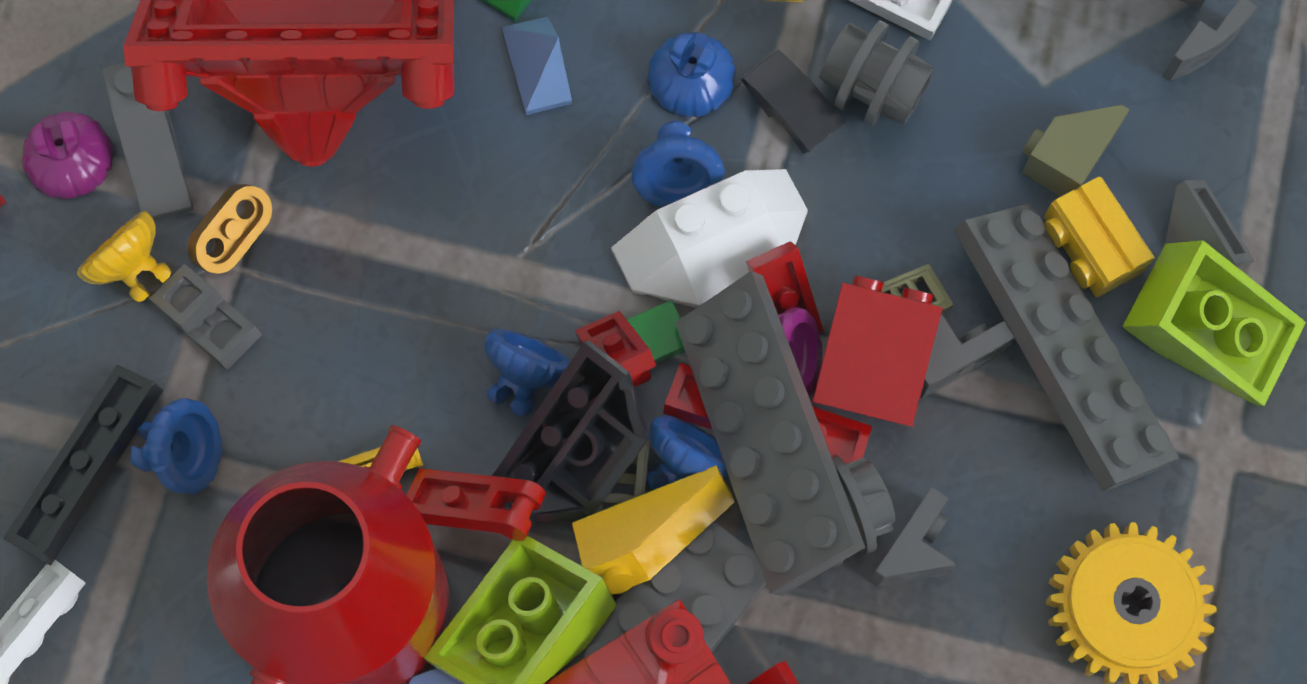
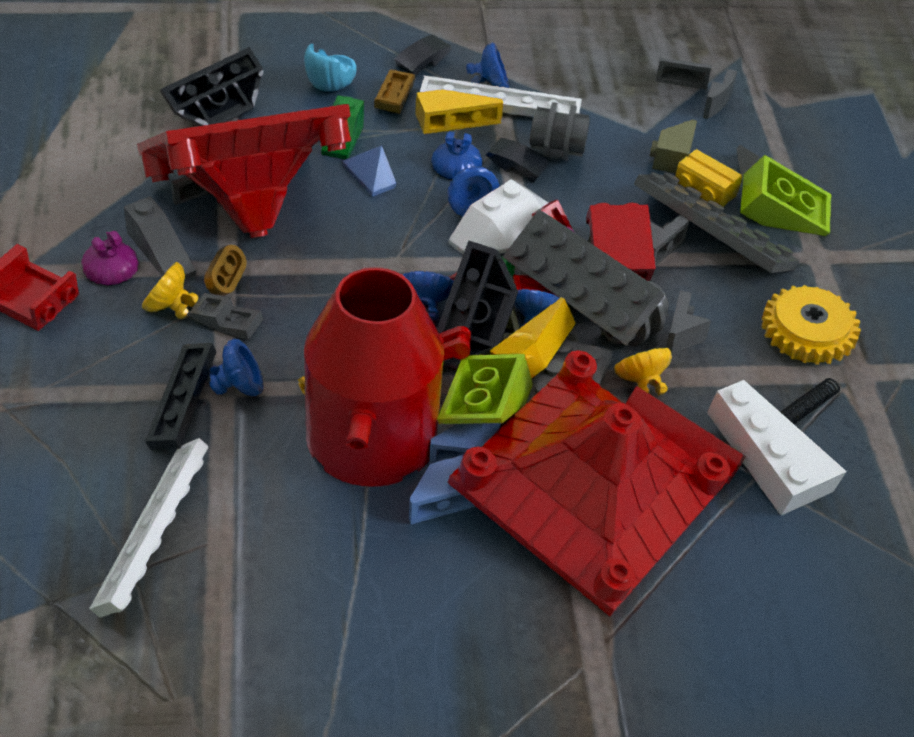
camera: 20 degrees left, 25 degrees down
(809, 626) = (645, 369): none -> yellow hair

